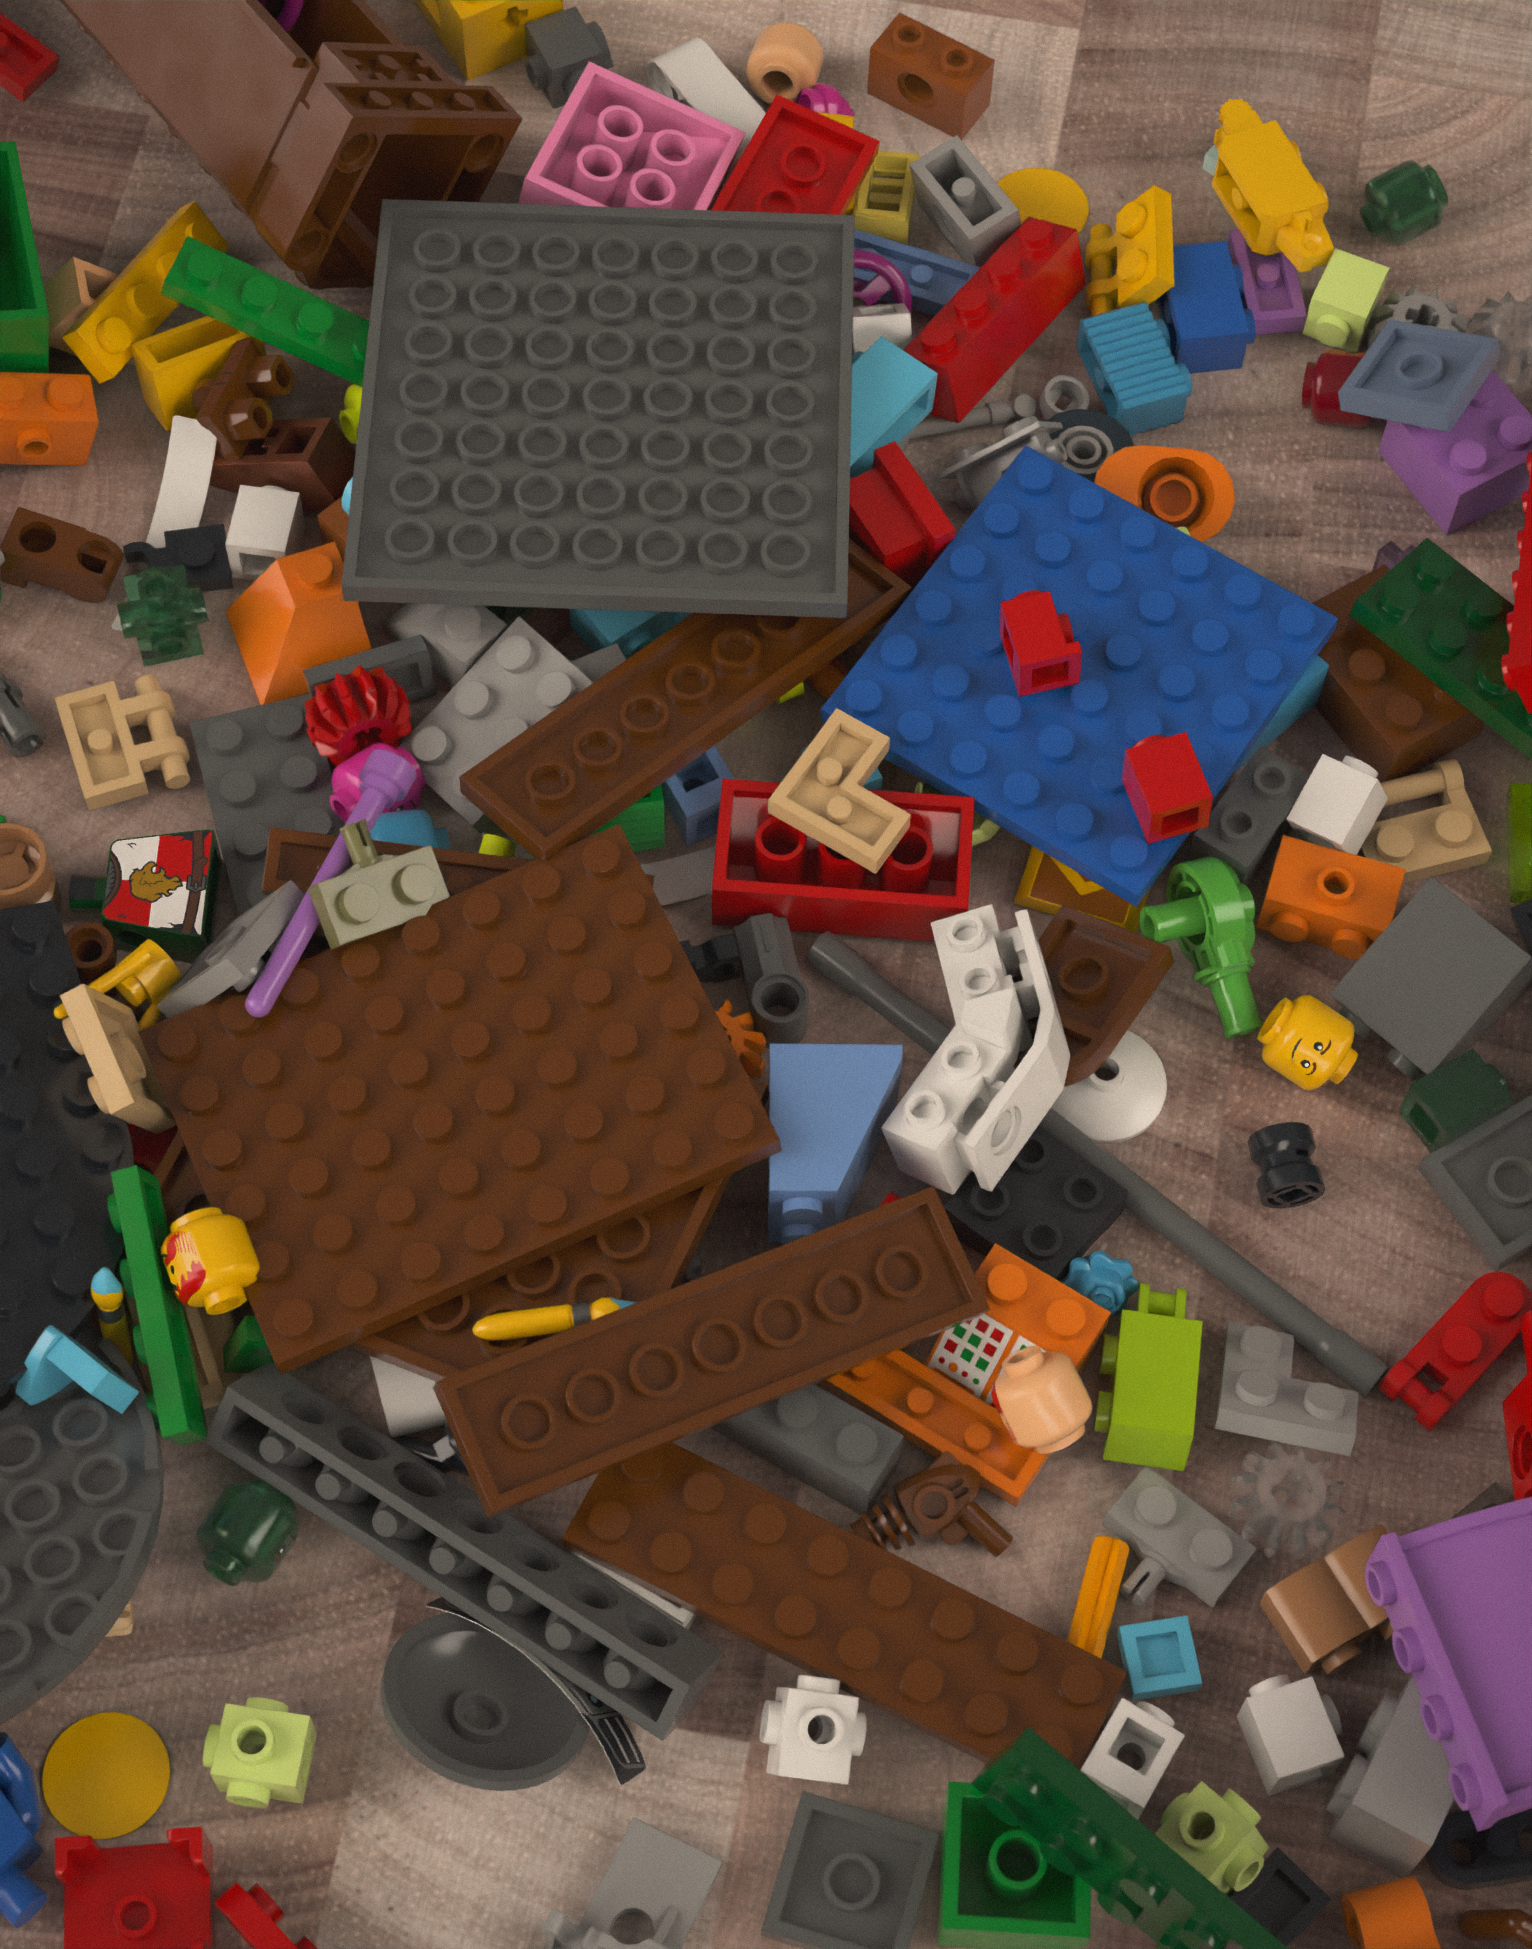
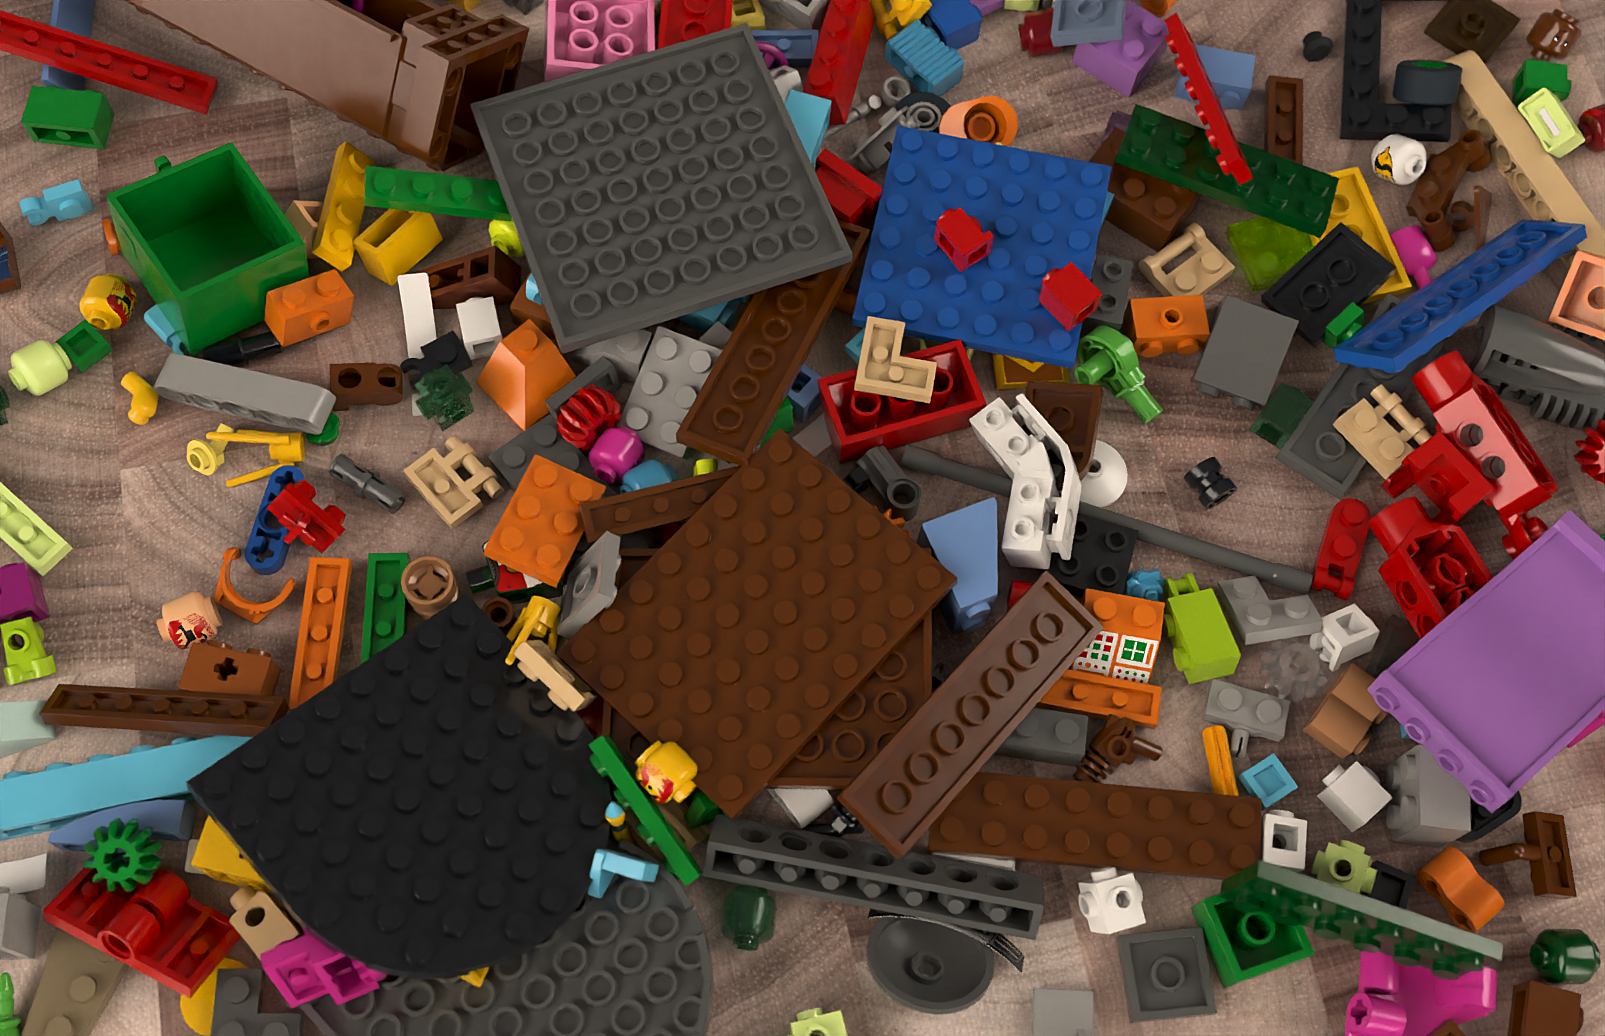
camera: 25 degrees left, 5 degrees up
(209, 838) = (543, 521): none -> orange plate
(238, 400) = (431, 252): reddish brown hips -> none
(376, 889) = (660, 518): plate -> none
(383, 781) = (633, 452): medium lavender piece -> none
(544, 1320) = (875, 730): yellow piece -> none
(1041, 1399) = (1152, 666): light nougat head -> none
(1308, 1042) = (1192, 410): yellow head -> none
(1338, 804) = (1151, 271): white brick -> none
(1393, 1481) = (1345, 636): none -> white brick

